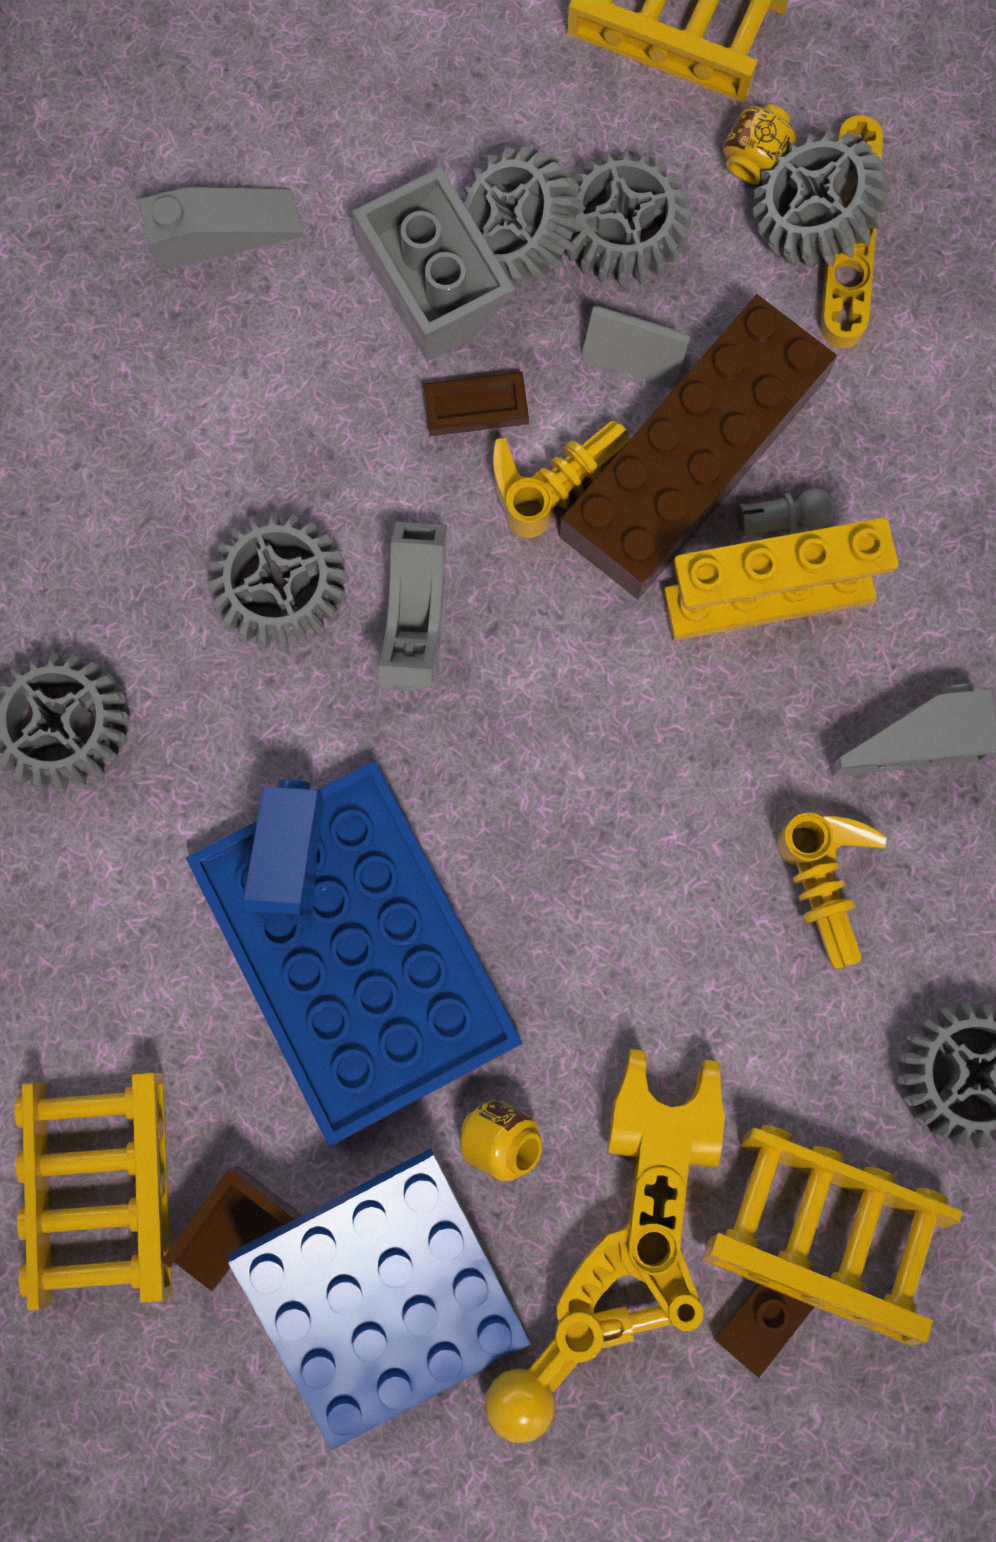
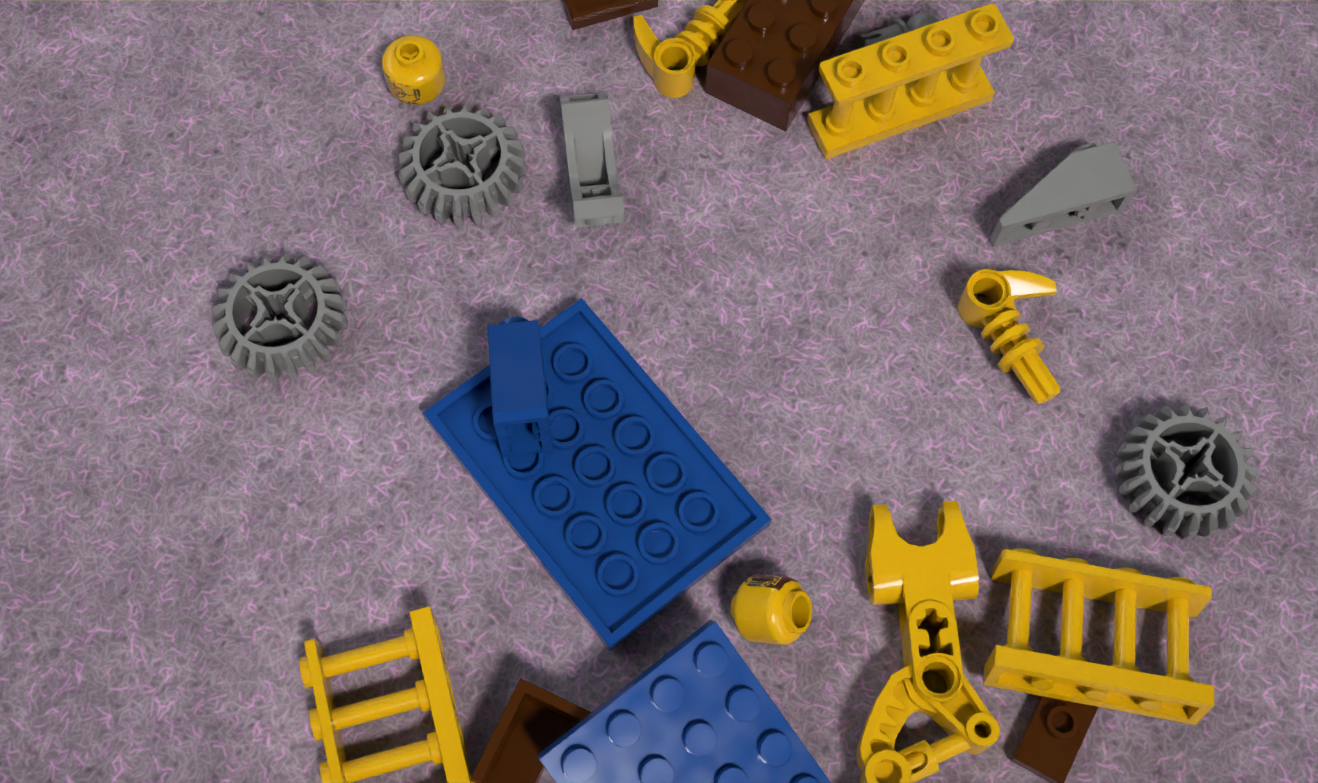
camera: 15 degrees left, 10 degrees down
(245, 462) = (413, 69): none -> yellow head

